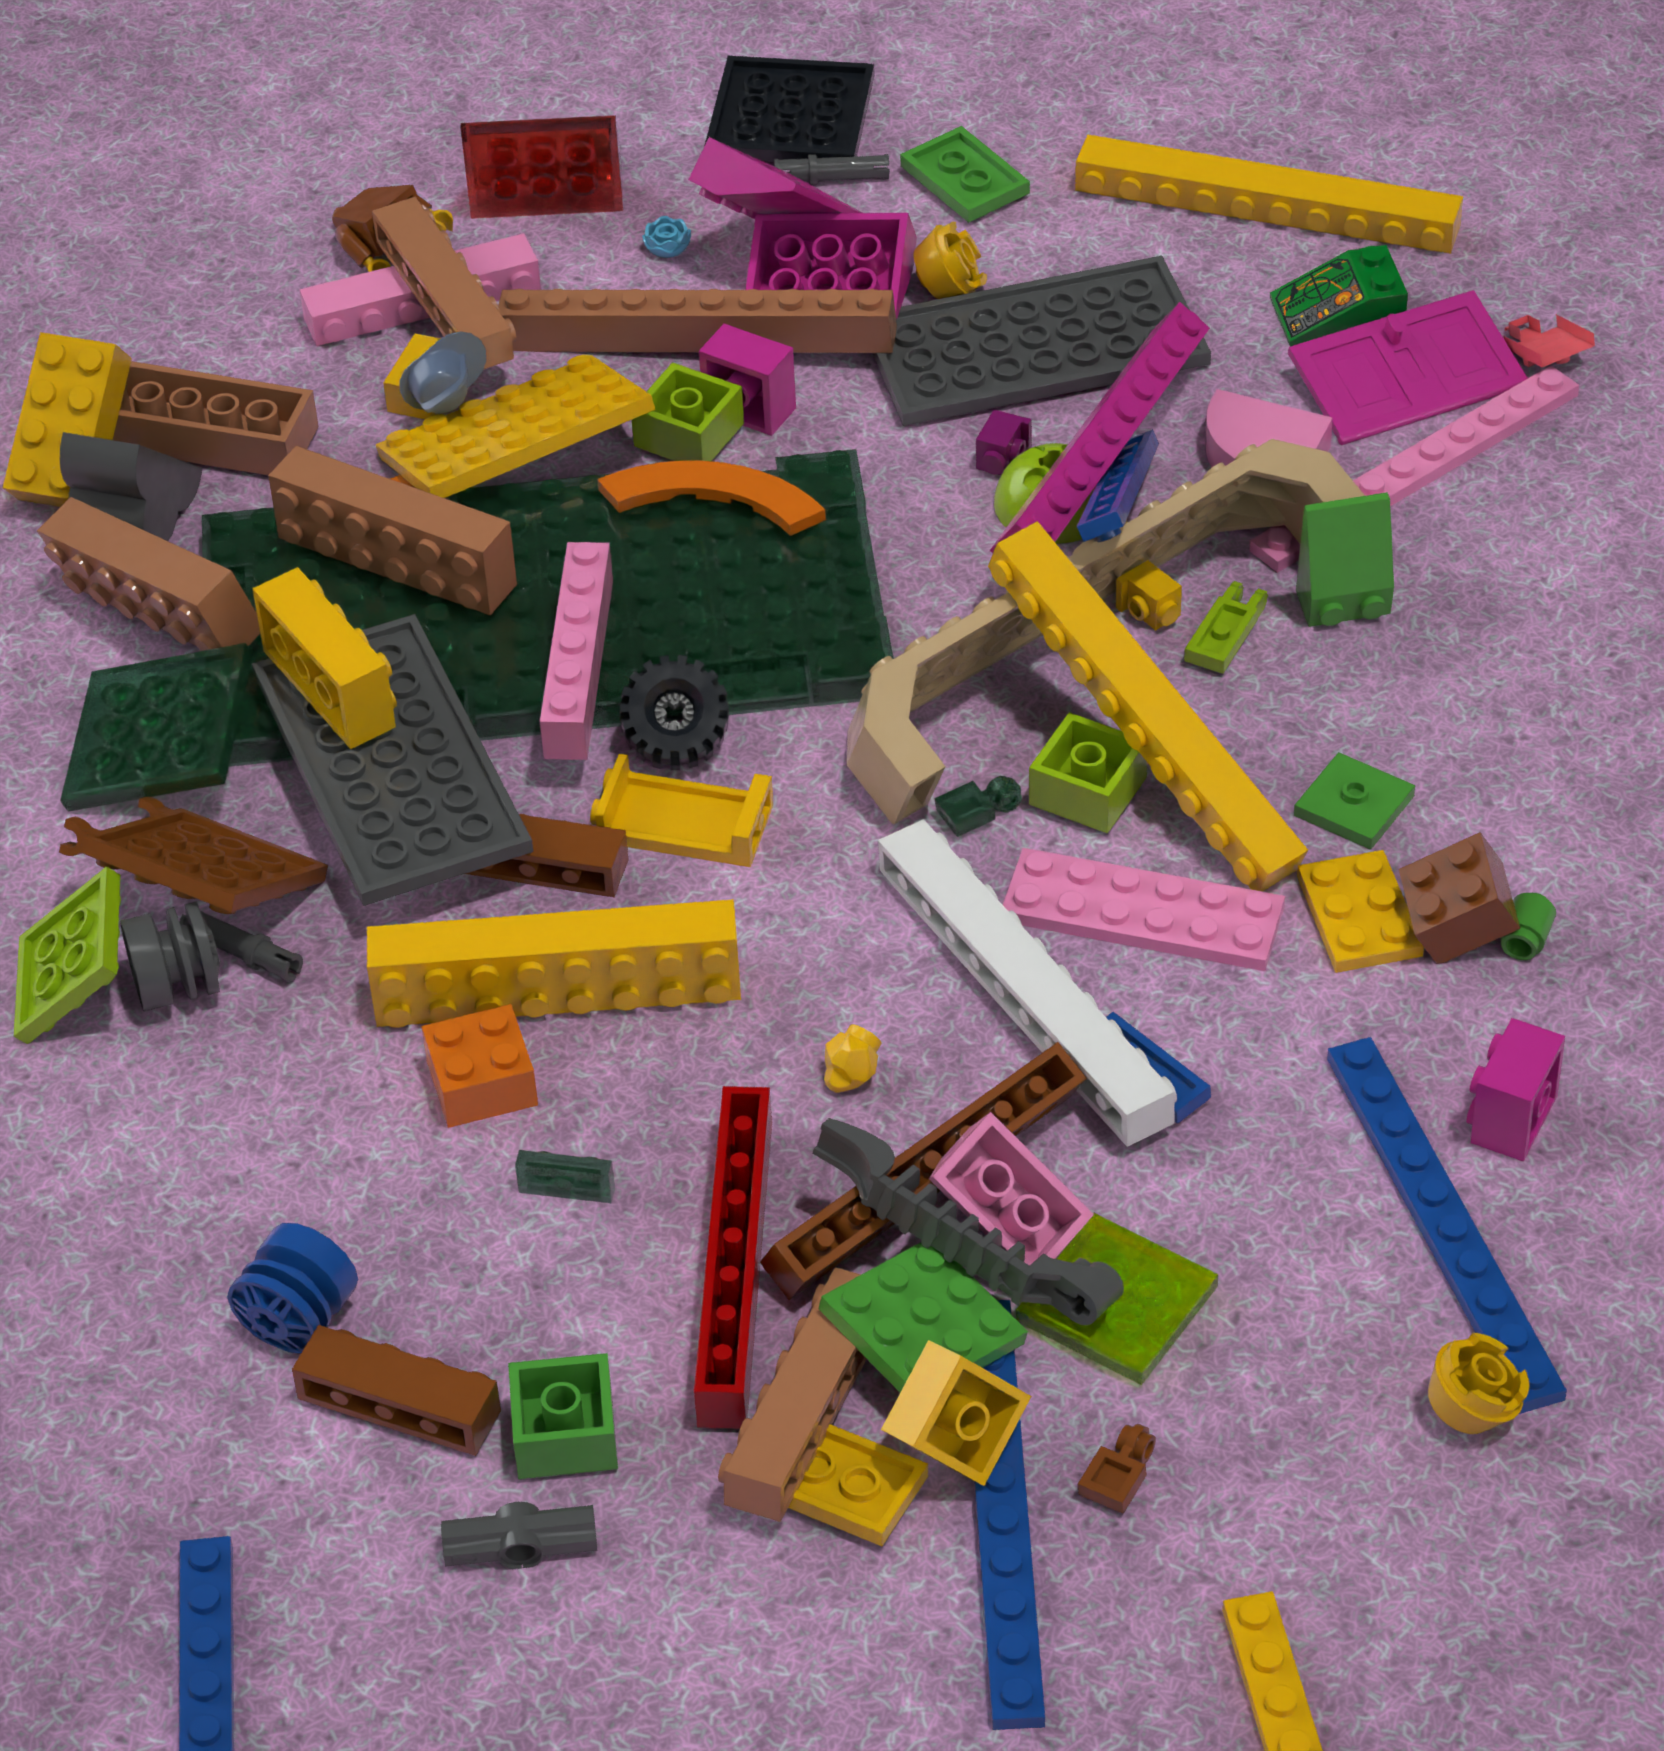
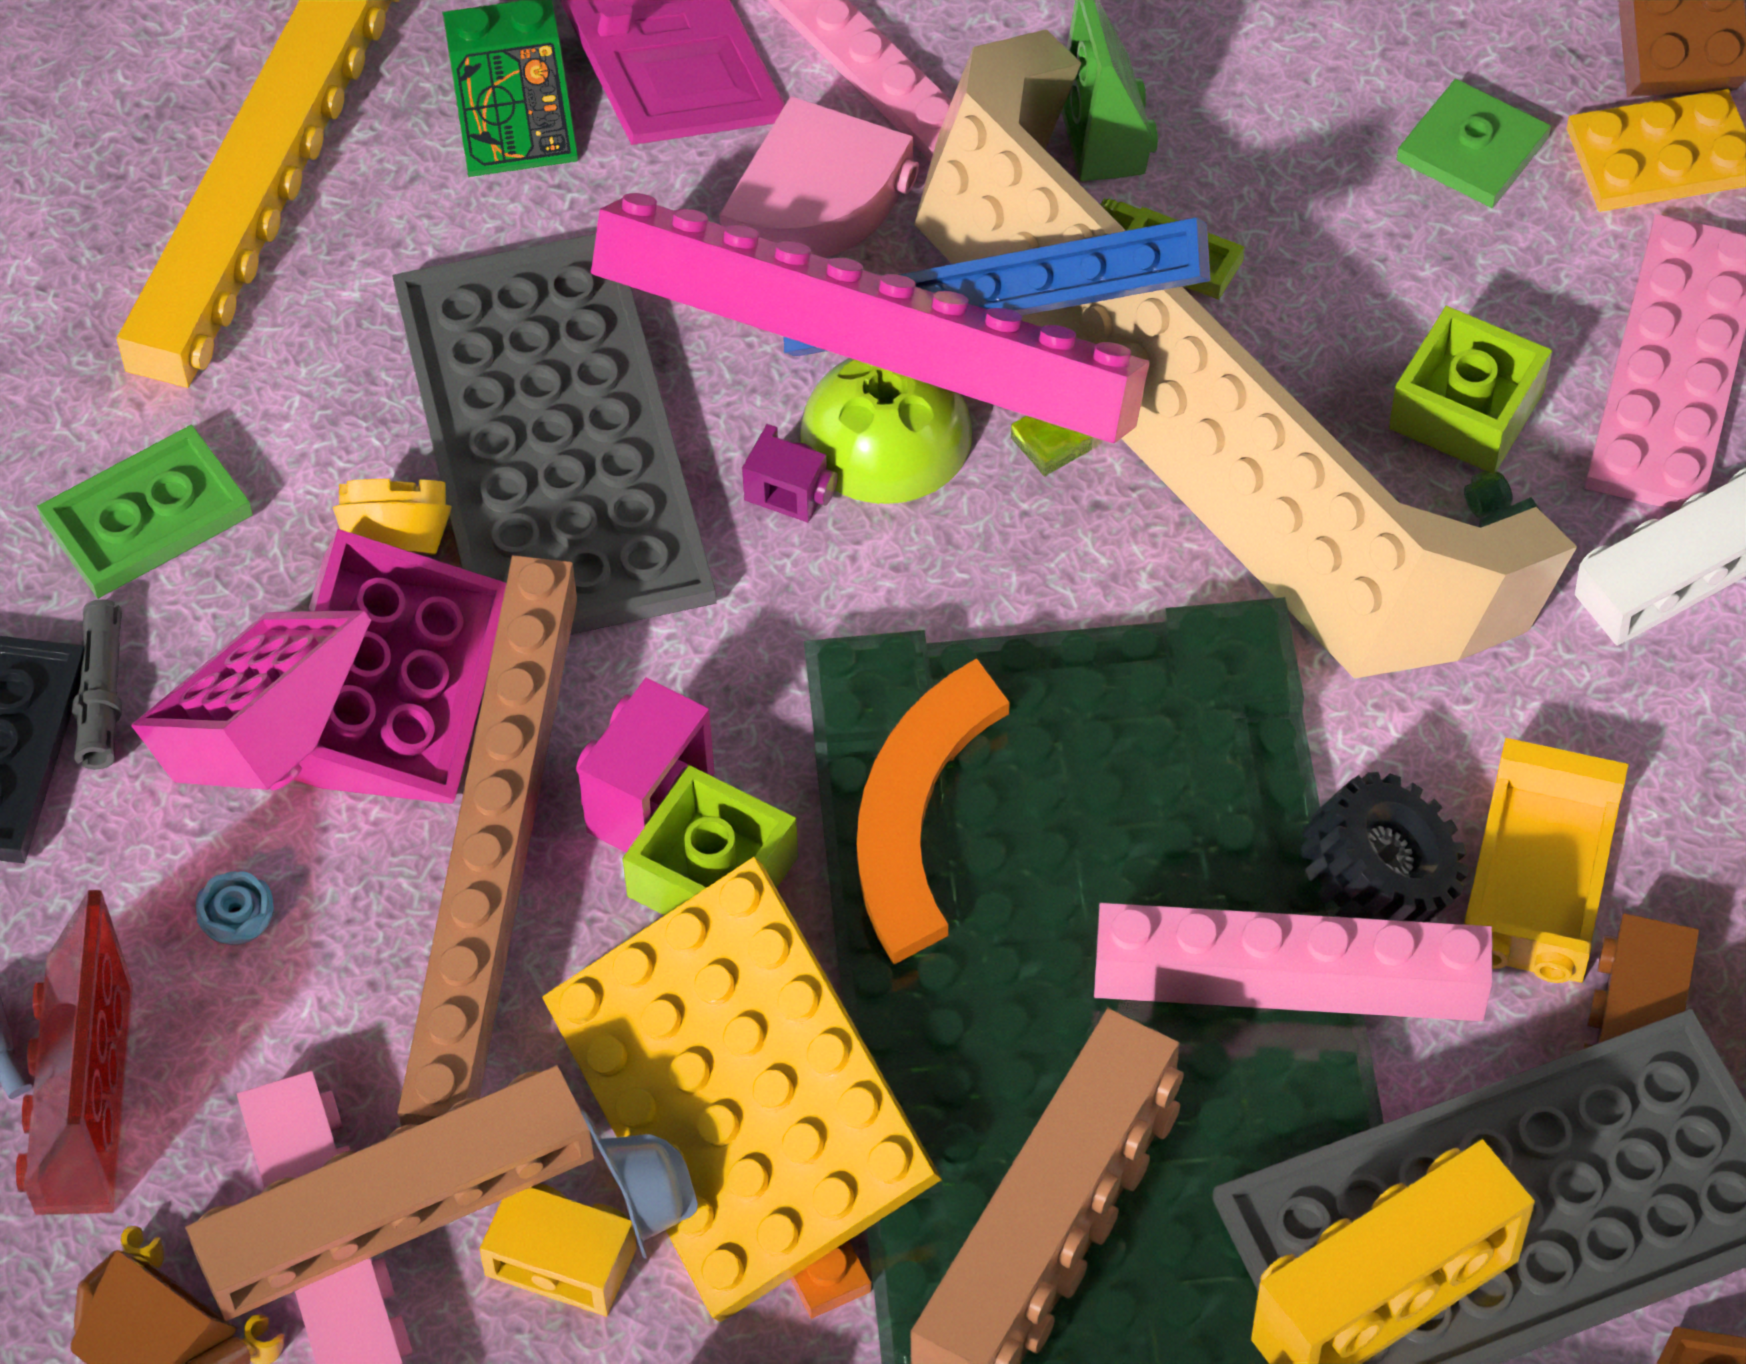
camera: 90 degrees left, 10 degrees up
(1146, 708) = (1417, 285): yellow brick -> none

